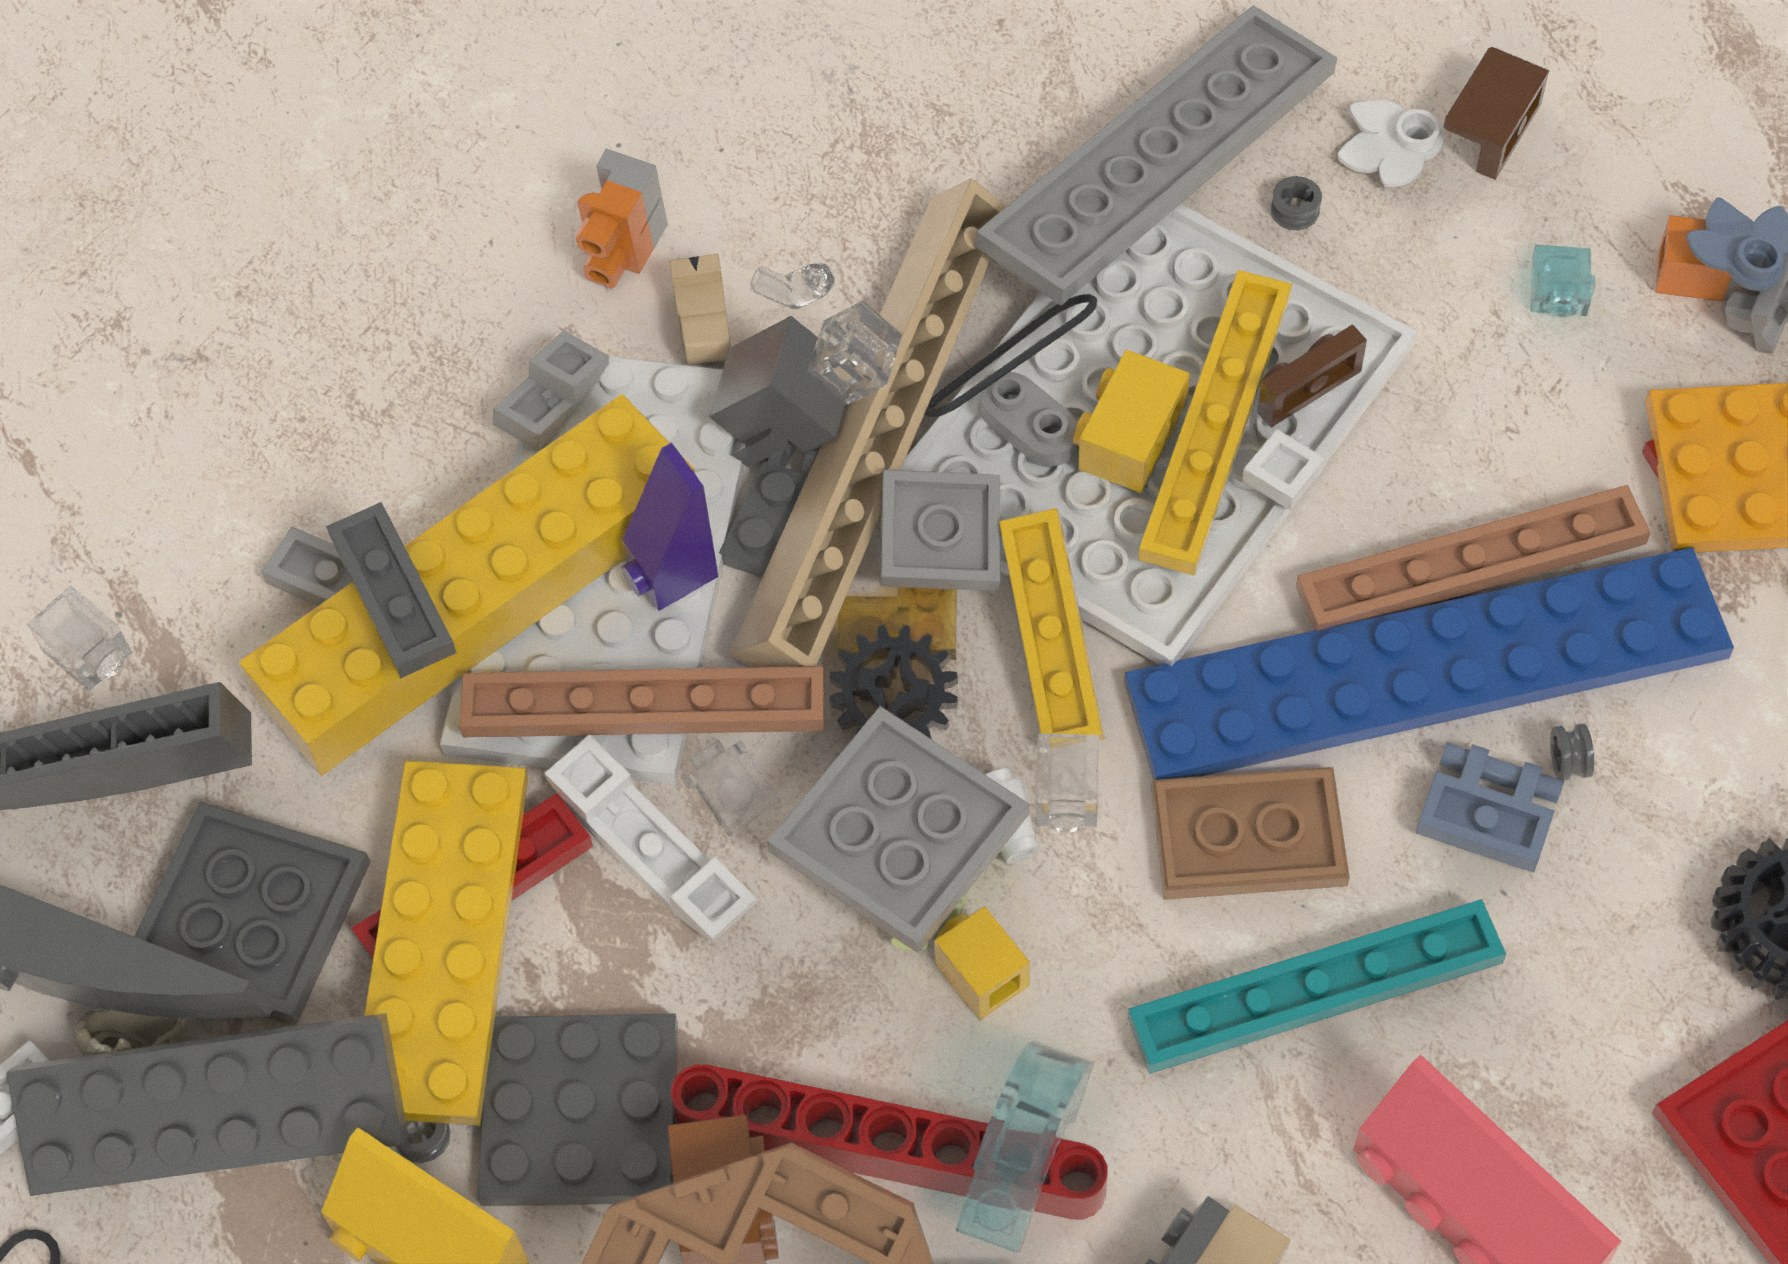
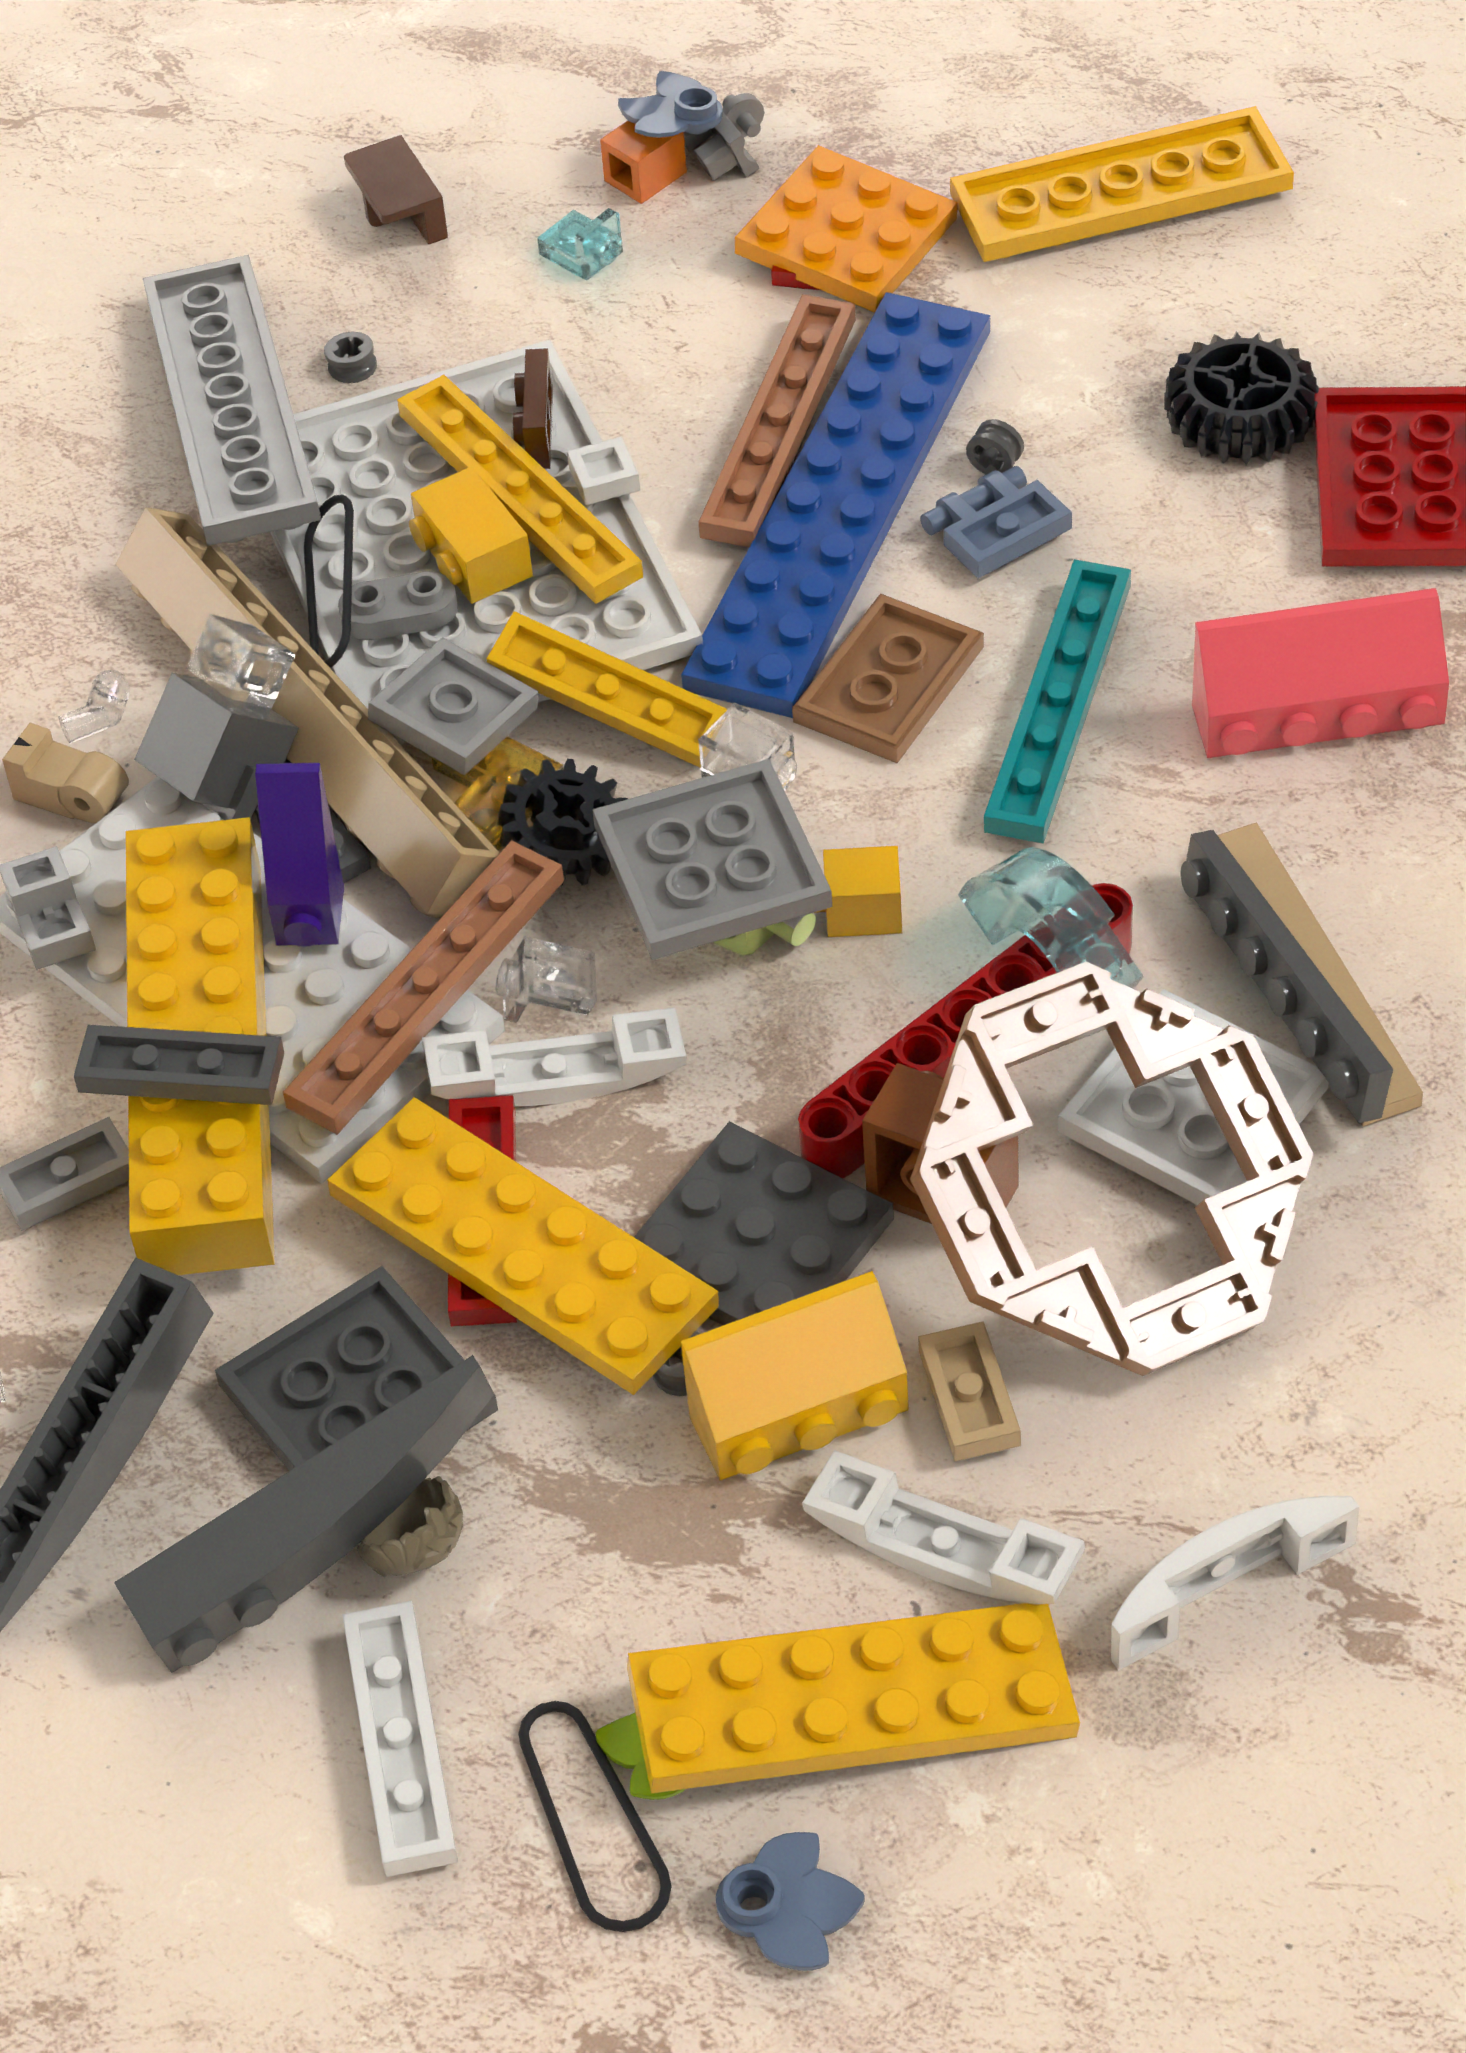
camera: 55 degrees left, 10 degrees down
(206, 1104) = (537, 1486): dark grey plate -> none
(1388, 142) = (354, 271): white plate -> none

